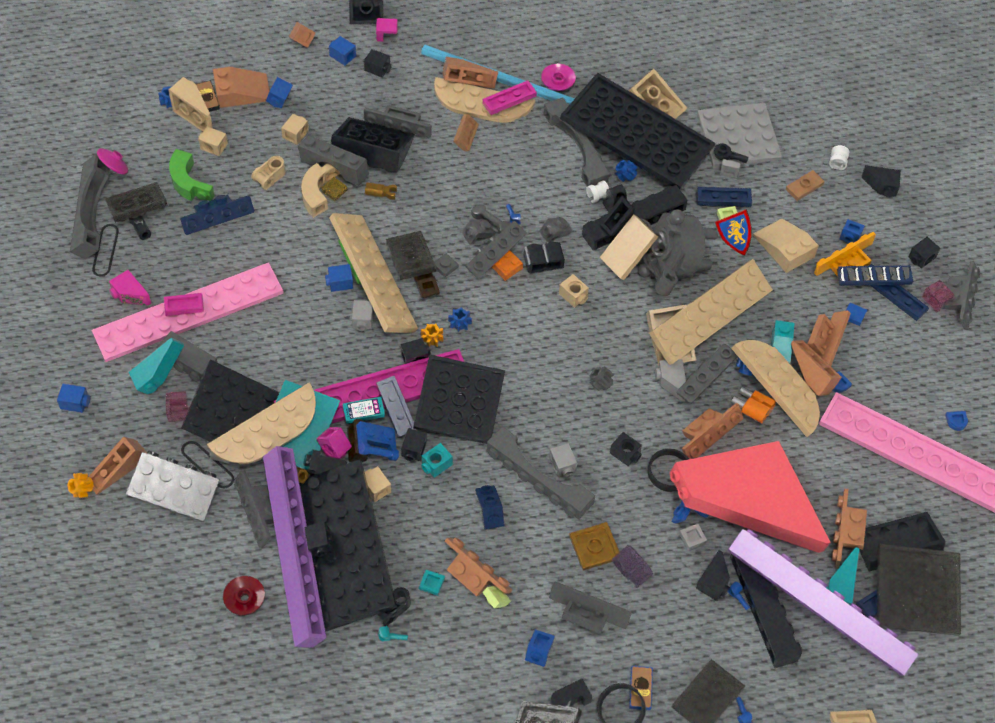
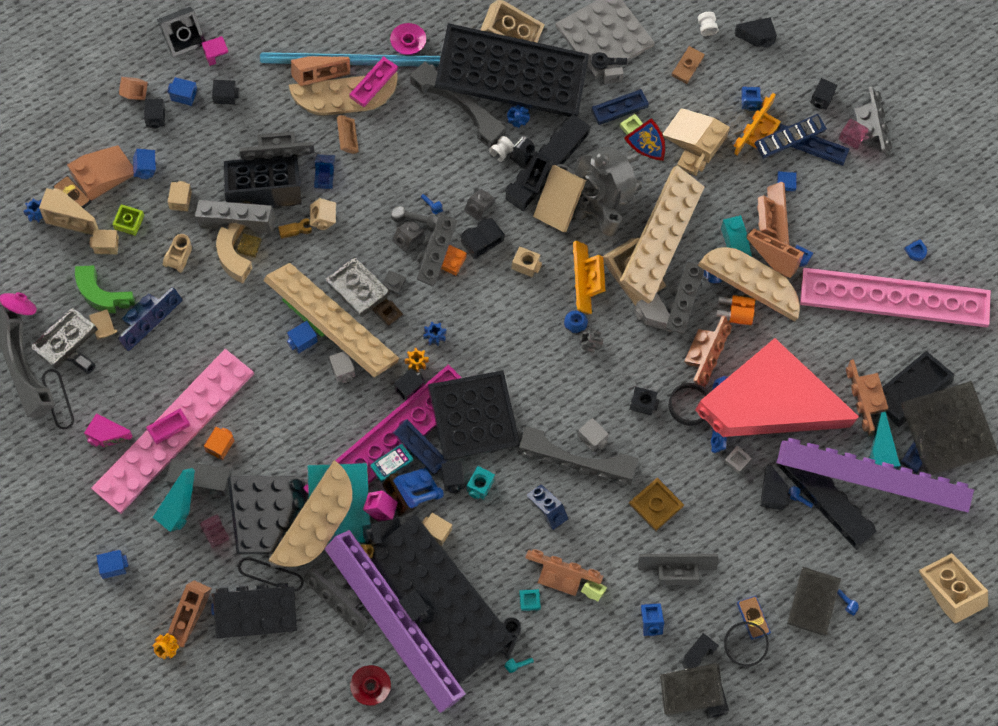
camera: 25 degrees left, 10 degrees up
(175, 204) = (103, 323): none -> tan bracket
(221, 335) = (219, 442): none -> orange brick
(242, 132) = (128, 220): none -> lime piece
(309, 58) = (154, 113): none -> black brick
(410, 186) = (322, 214): none -> tan brick
(431, 155) = (324, 171): none -> clear blue slope
(590, 359) = (573, 326): none -> blue plate
(624, 324) = (588, 276): none -> light orange bracket
(632, 566) = (698, 510): clear purple beam -> none
(770, 266) = (692, 163): none -> tan bracket

